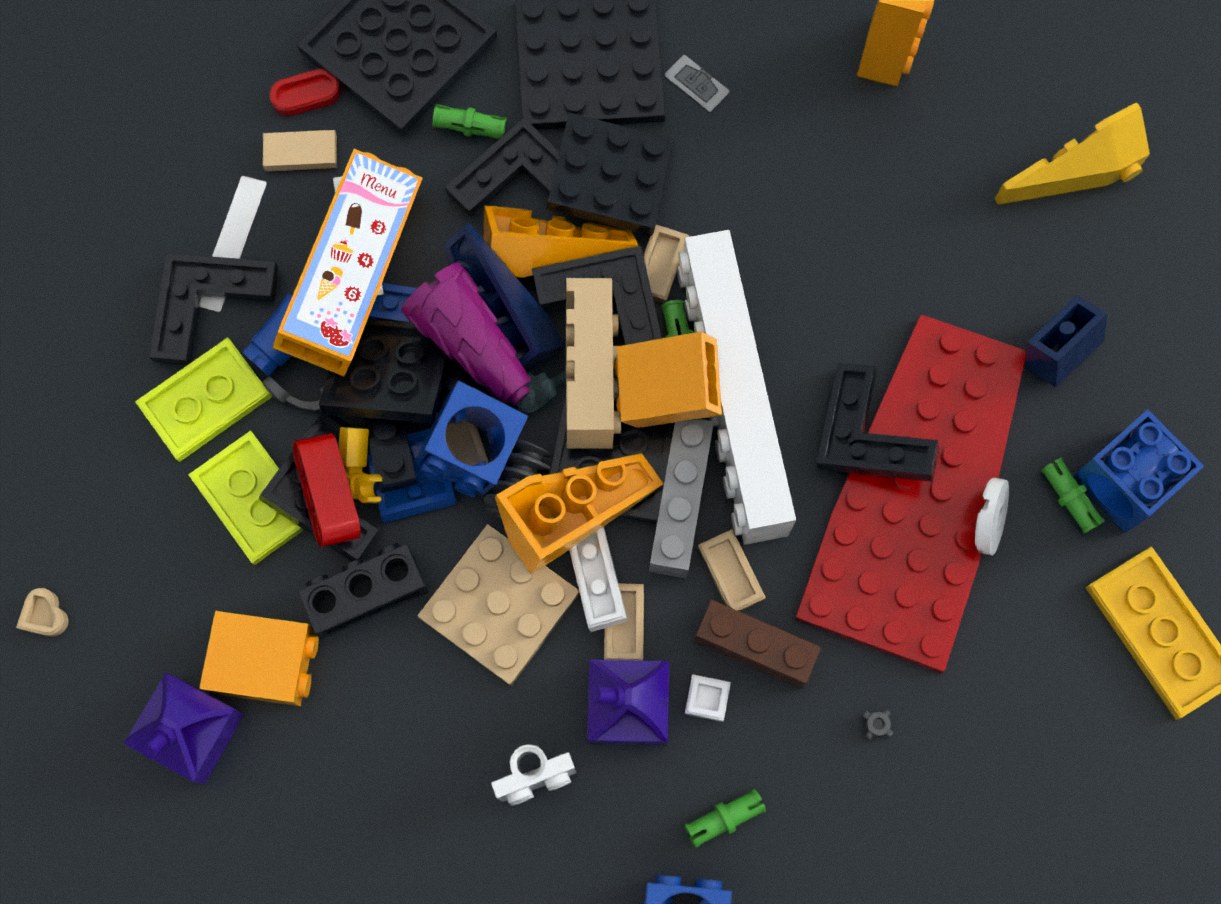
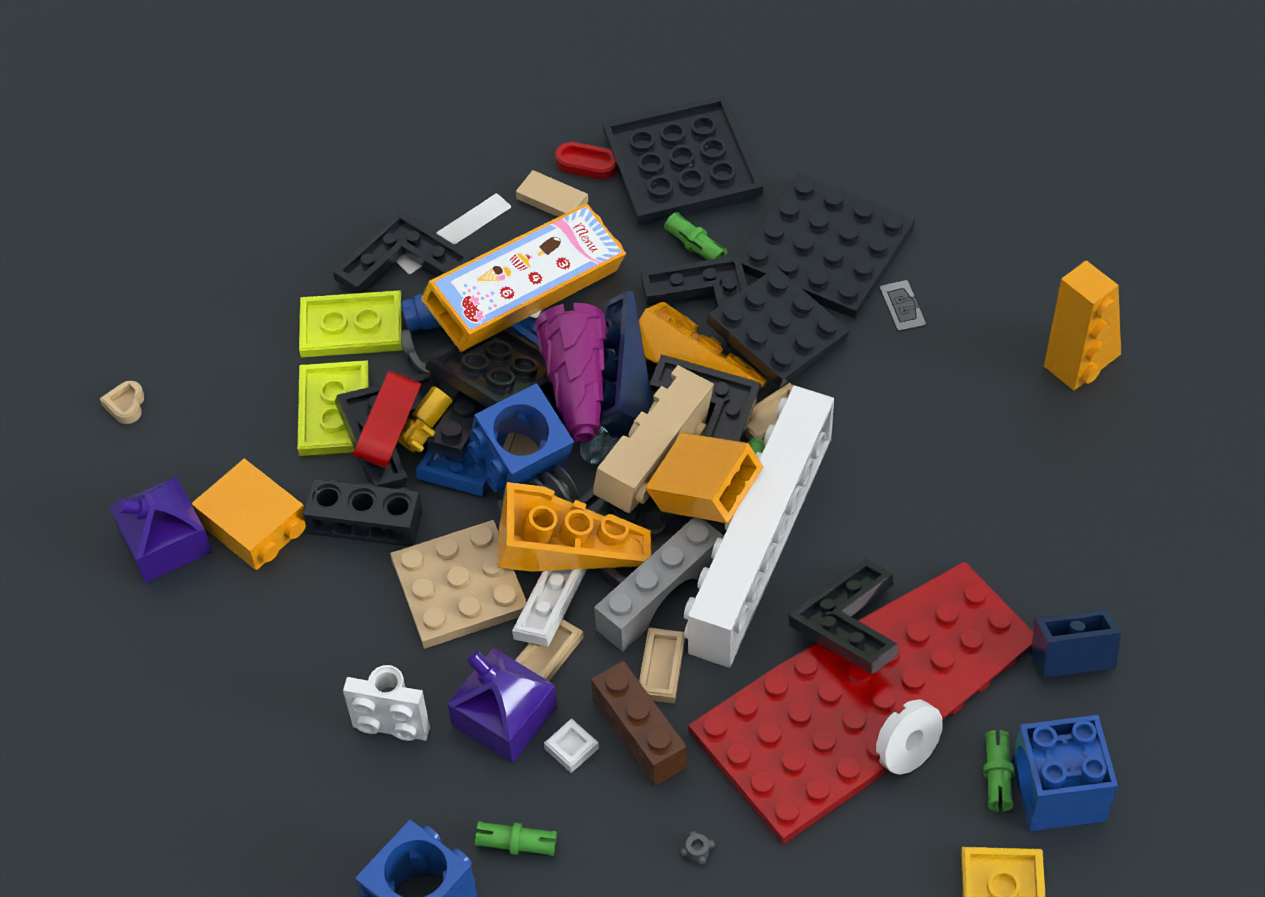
camera: 35 degrees right, 20 degrees down
(1101, 159) = (1204, 521): yellow wedge -> none

